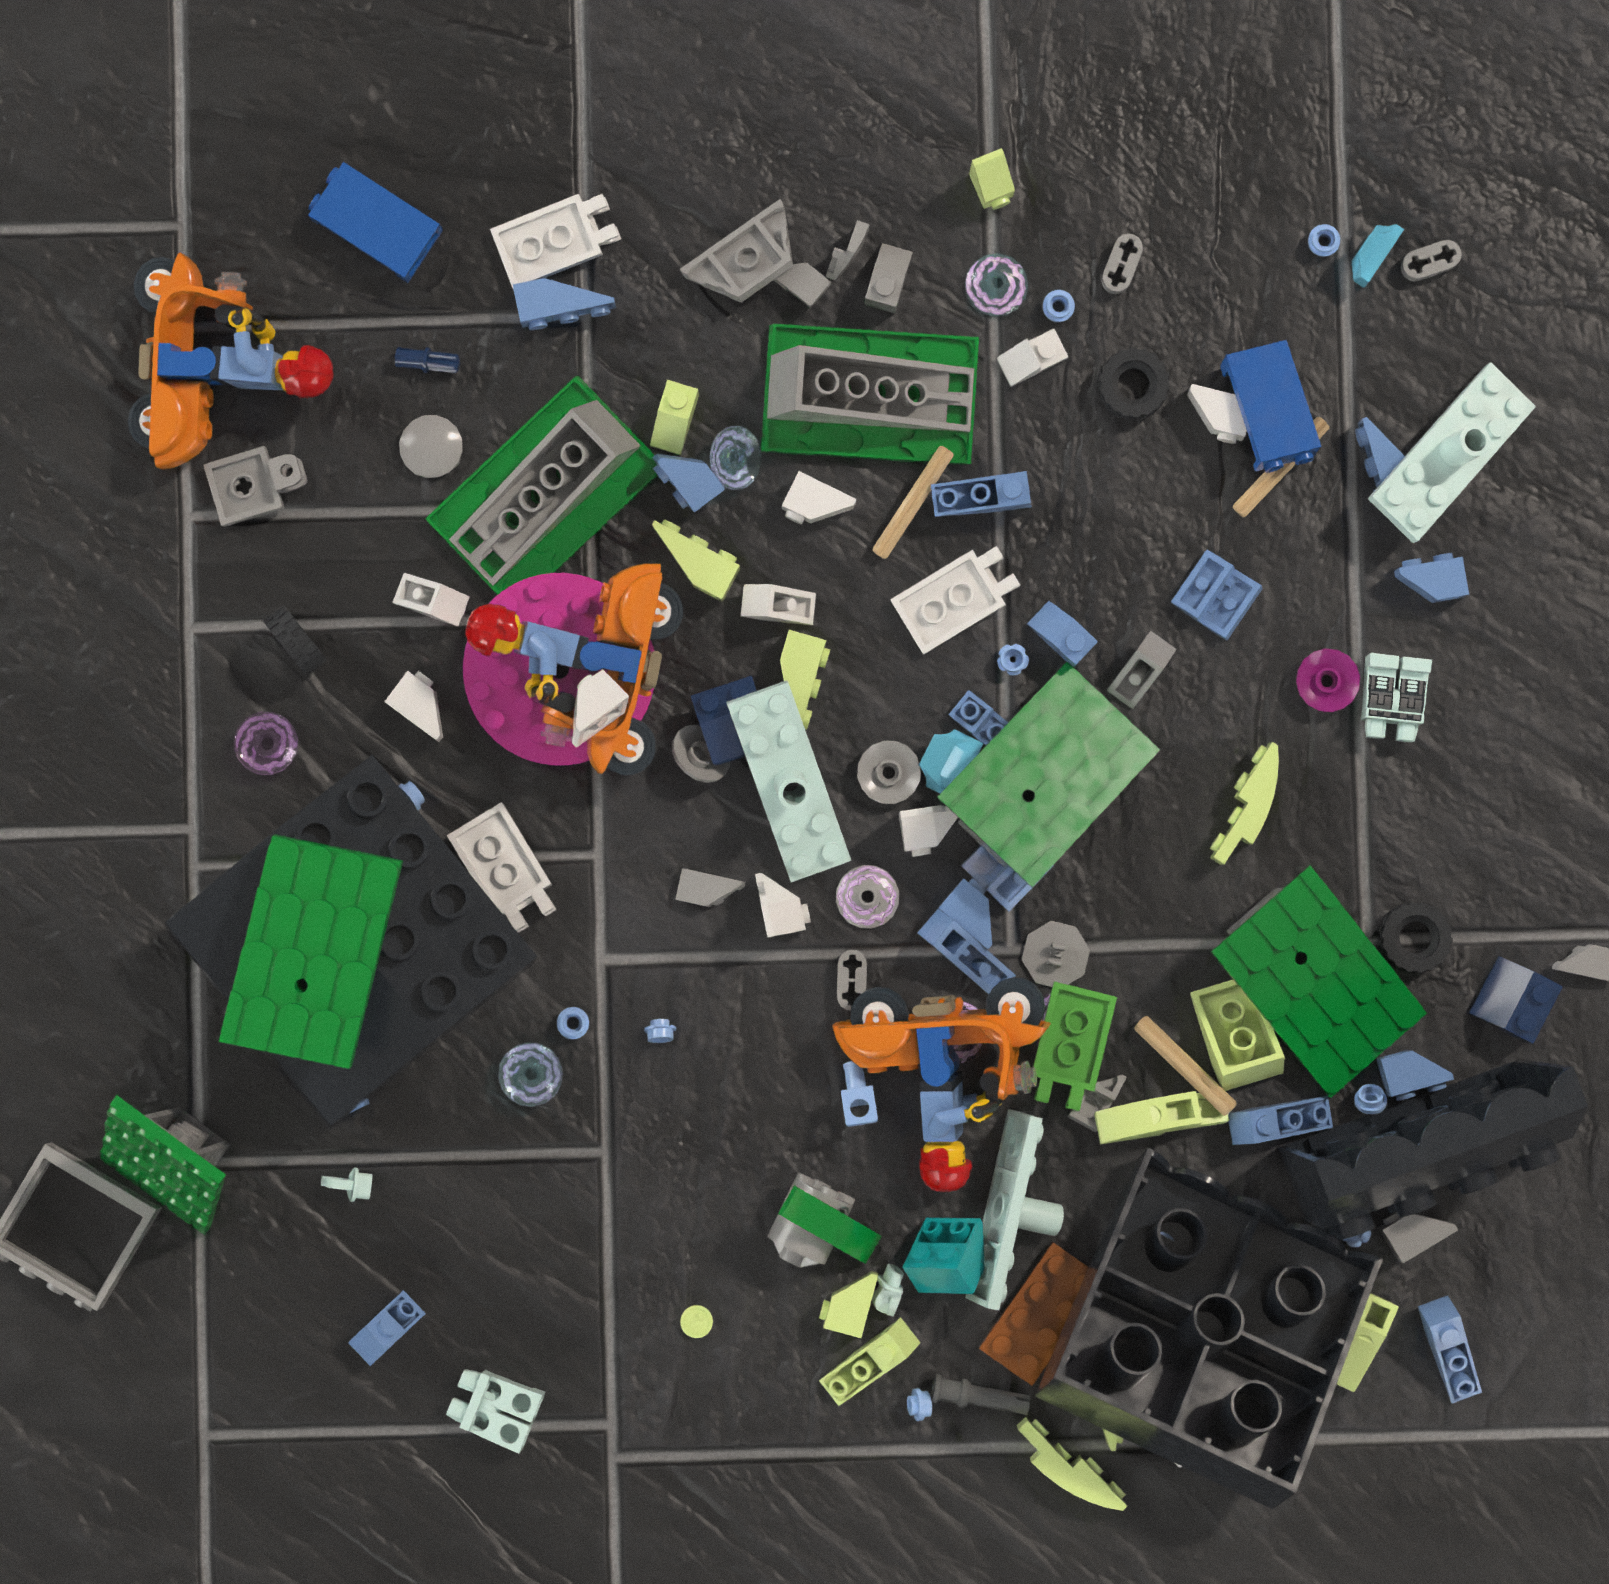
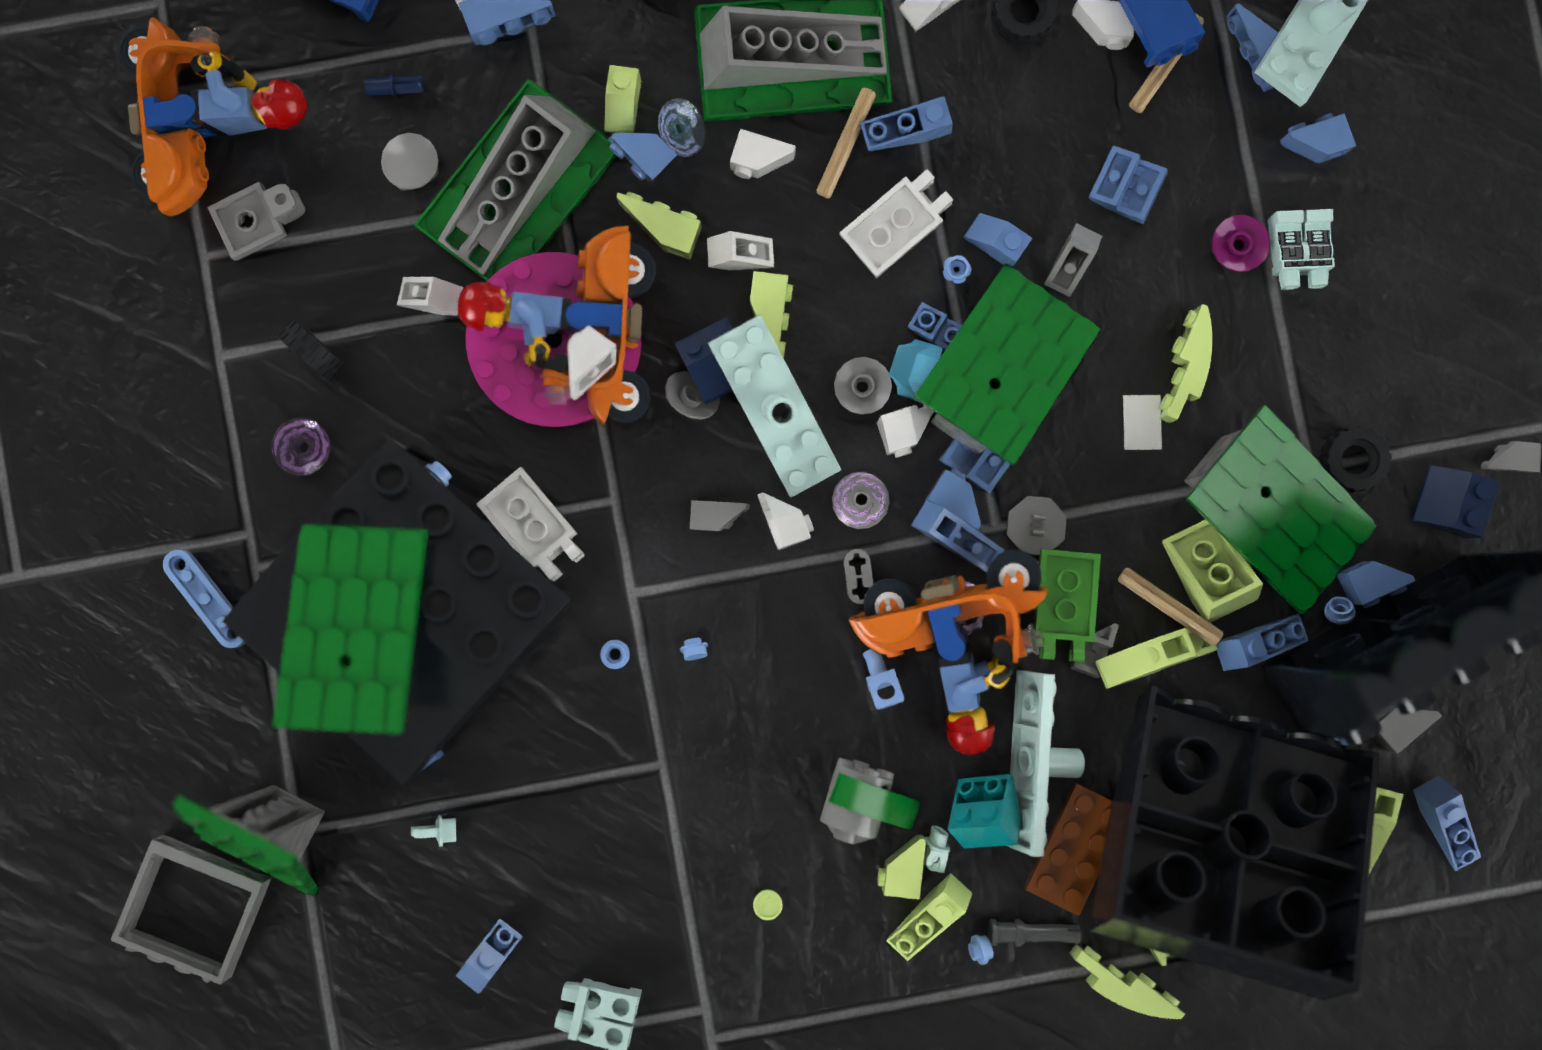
camera: 10 degrees left, 0 degrees up
(136, 891) = (201, 595): none -> light blue plate
(417, 703) = (431, 389): white slope -> none
(513, 1077) = (568, 708): clear light blue dish -> none
(1190, 859) = (1142, 422): none -> white sticker

